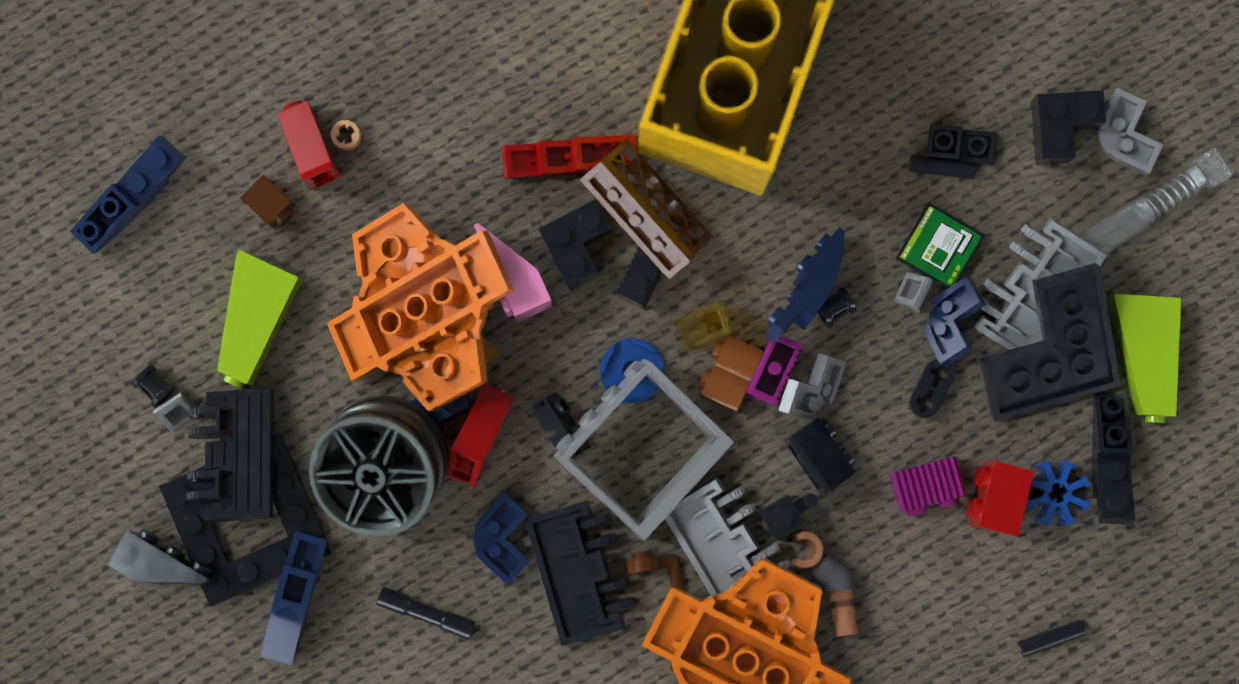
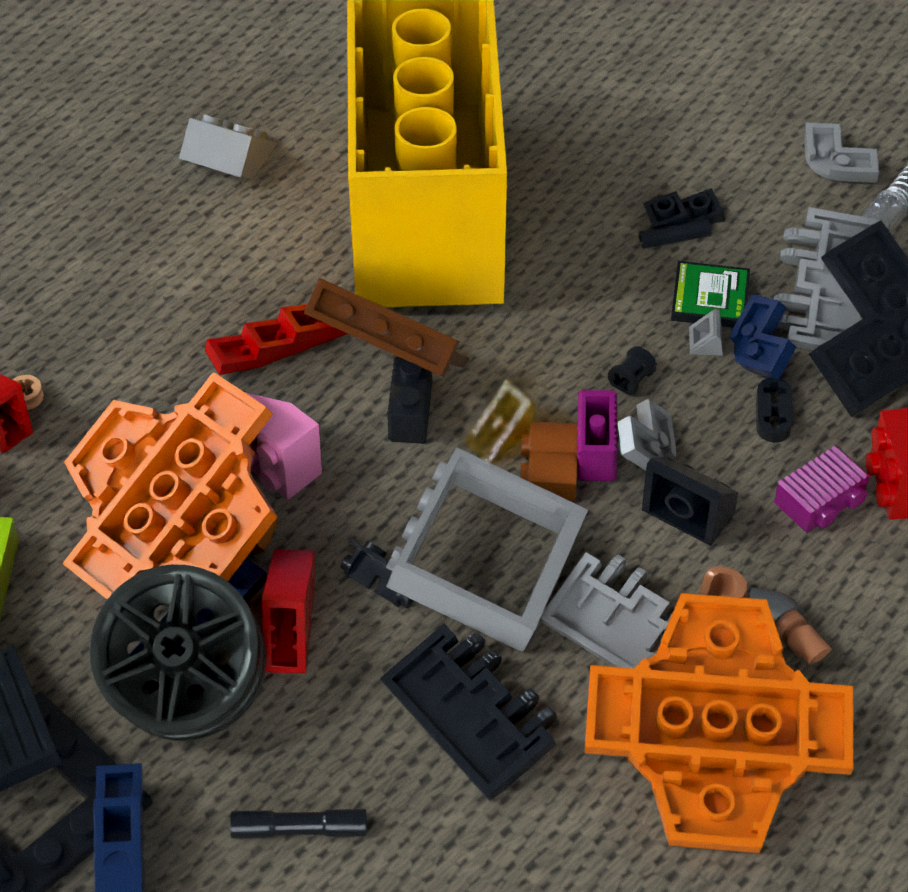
camera: 25 degrees left, 35 degrees down
(492, 541) = (350, 710): dark blue plate -> none
(569, 236) = (323, 393): black brick -> none
(620, 357) = (456, 510): blue tile -> none
(644, 562) = (547, 671): reddish brown plate -> none
(784, 515) = (682, 563): black brick -> none
(812, 285) = (597, 347): dark blue slope -> none
(1057, 117) = (772, 159): black brick -> none

